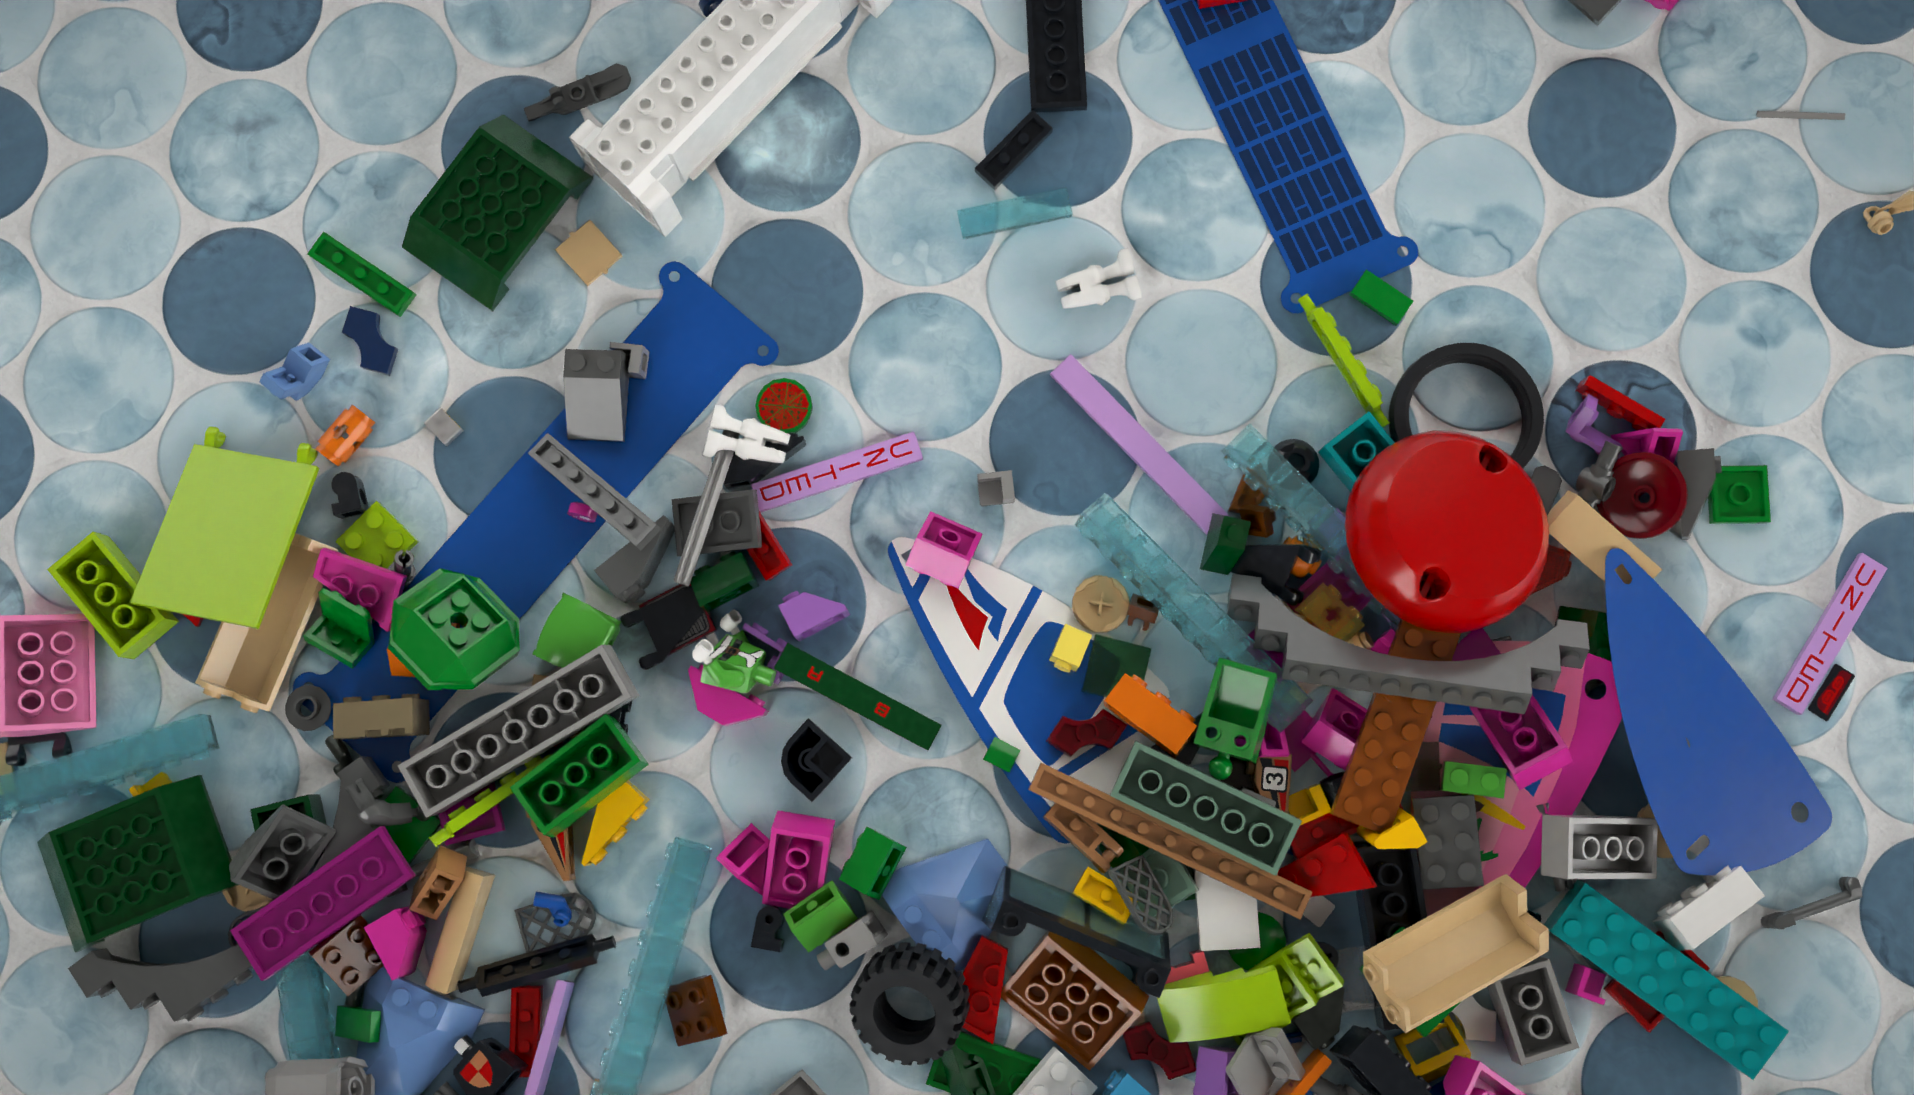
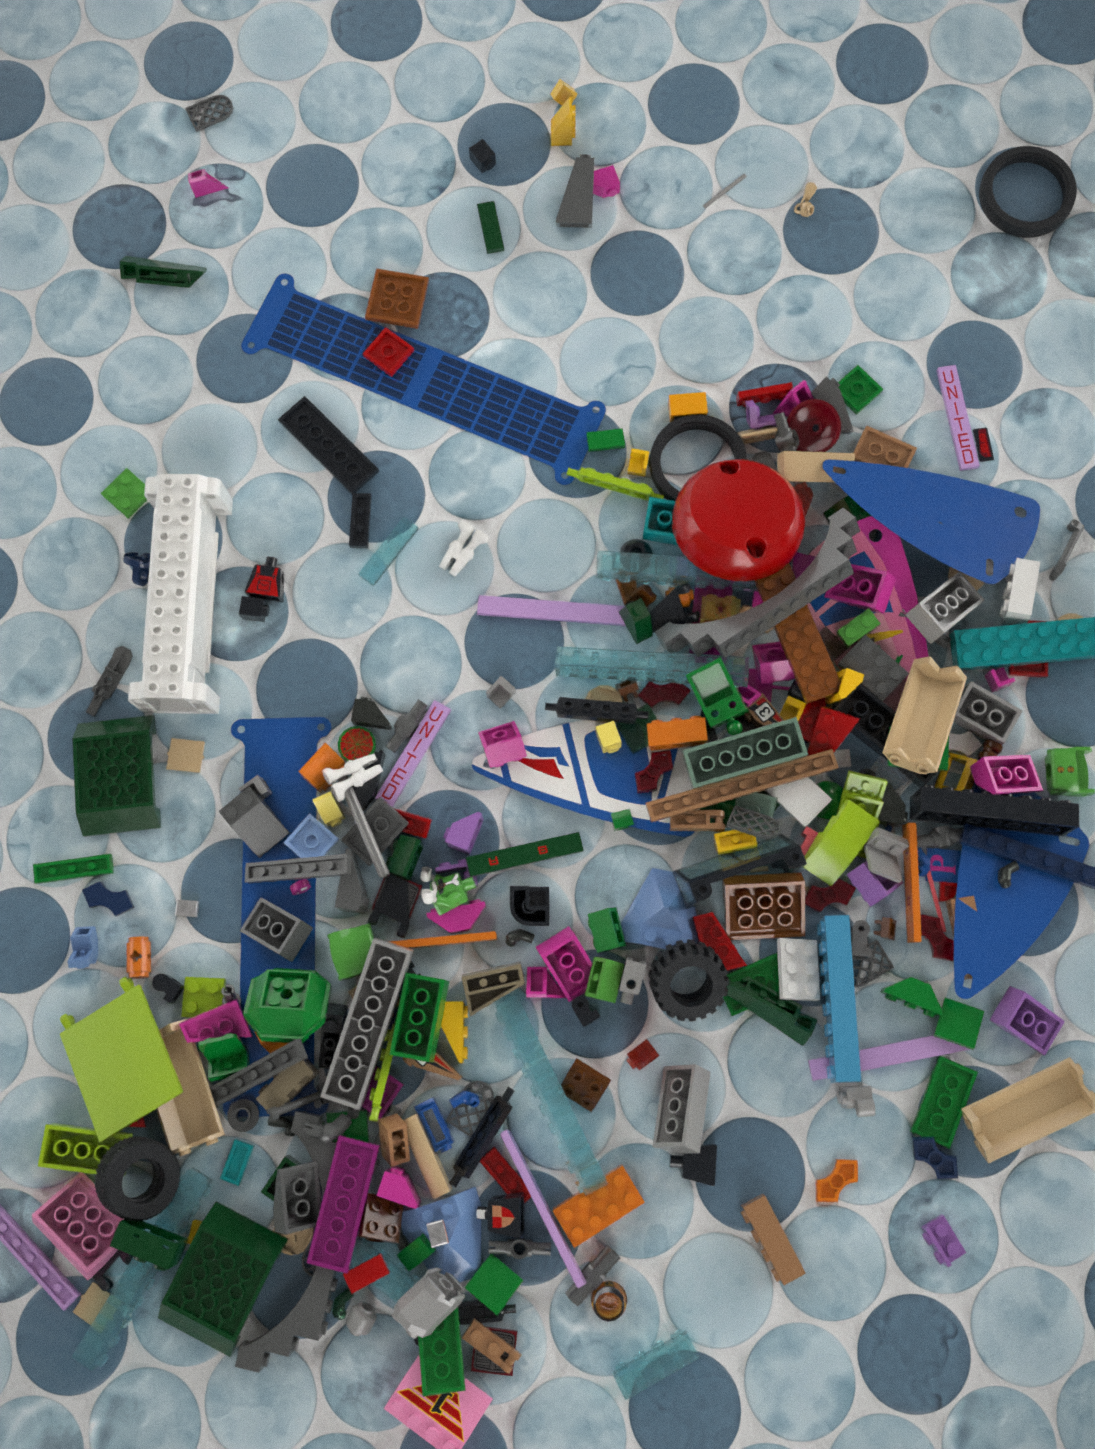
camera: 40 degrees left, 5 degrees down
(73, 742) = (148, 1246): none -> dark green piece
(128, 713) = (159, 1193): none -> black tyre
(227, 1007) = (338, 1309): none -> clear green arm
(241, 1039) = (361, 1319): none -> light grey head
(259, 752) = (237, 1162): none -> teal tile
(285, 998) = (366, 1273): none -> red tile
(338, 738) = (275, 1112): none -> dark grey hinge
(358, 678) = (258, 1072): none -> dark grey plate
(393, 1027) = (437, 1233): none -> flat silver piece
(477, 702) = (331, 1033): none -> black slope
(498, 905) = (435, 1125): none -> blue window
(516, 536) = (276, 929): none -> dark grey slope
(640, 470) = (311, 839): none -> light blue plate
(685, 712) = (447, 940): none -> orange tile
(687, 454) = (329, 809): none -> light yellow slope
(692, 808) = (491, 984): none -> dark tan wedge
(729, 391) = (322, 759): none -> orange slope
(771, 779) = (517, 935): none -> pearl dark grey arm
(786, 1036) = (641, 1055): none -> clear red slope
(804, 150) = (253, 609): none -> black brick
(826, 383) = (368, 714): none -> pearl dark grey slope
(846, 130) = (266, 581): none -> torso
(856, 433) = (406, 726): none -> dark grey pin
(1084, 605) = (596, 710): none -> black plate
(1169, 644) = (655, 694): none -> dark red tile
(1394, 358) = (638, 462): none -> yellow panel
(1498, 1056) = (990, 748): none -> reddish brown wheel
(1515, 339) = (687, 404): none -> light orange panel
(1566, 446) = (757, 435): none -> tan slope
(1701, 593) = (883, 449): none -> medium nougat plate

